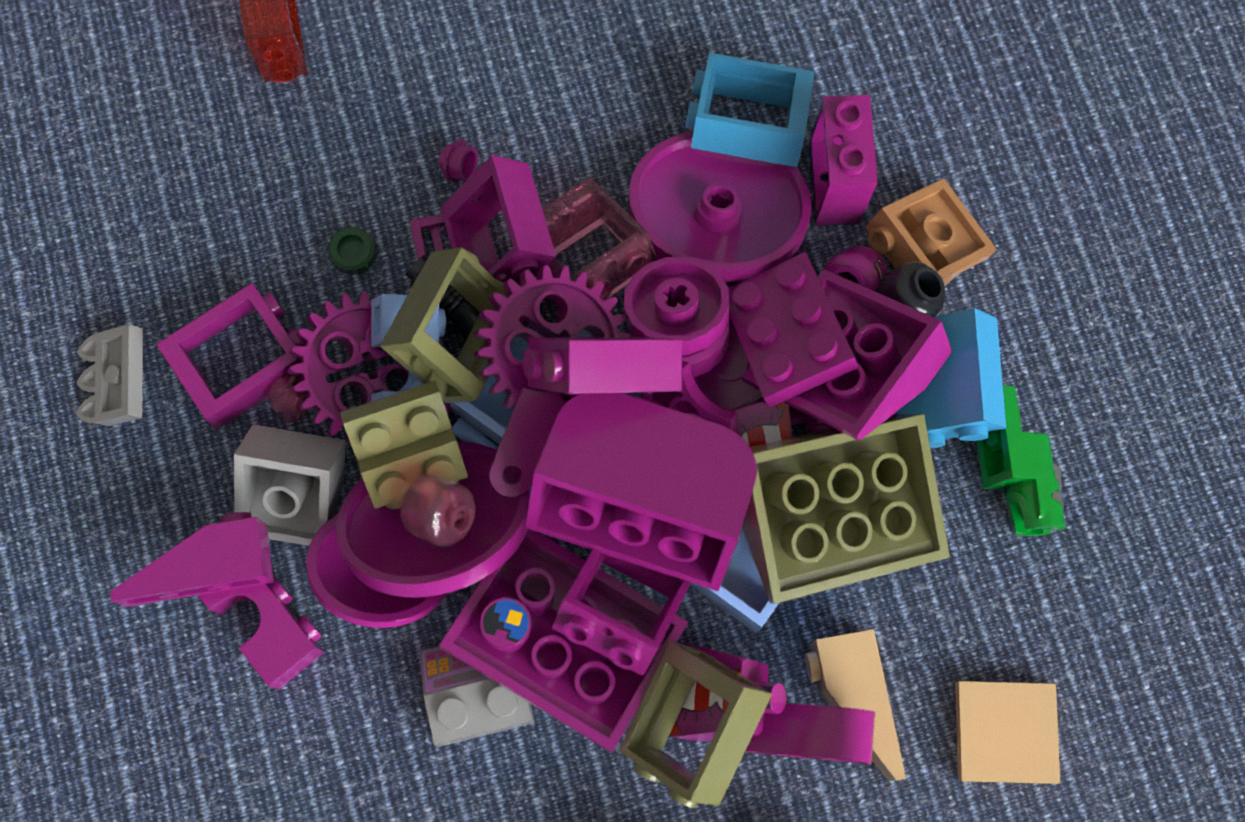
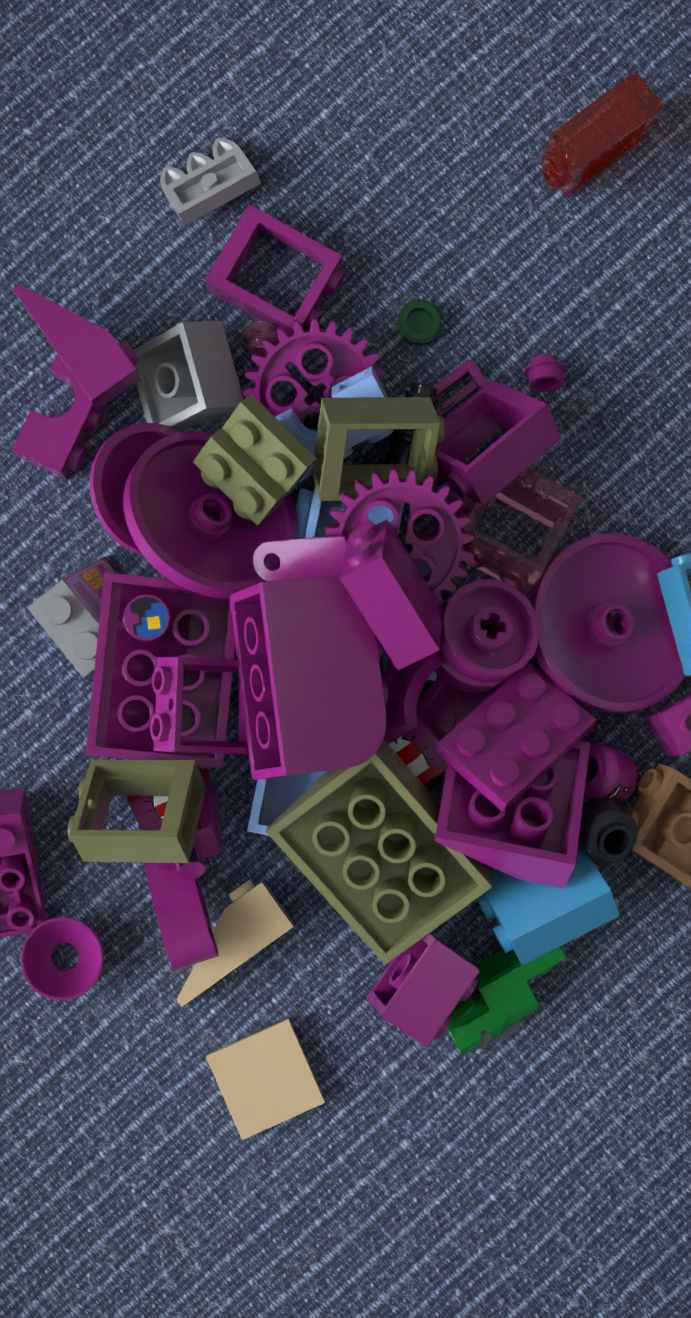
camera: 65 degrees right, 10 degrees up
(437, 510) = (210, 515): clear pink head -> none
(989, 529) = (424, 988): none -> magenta brick

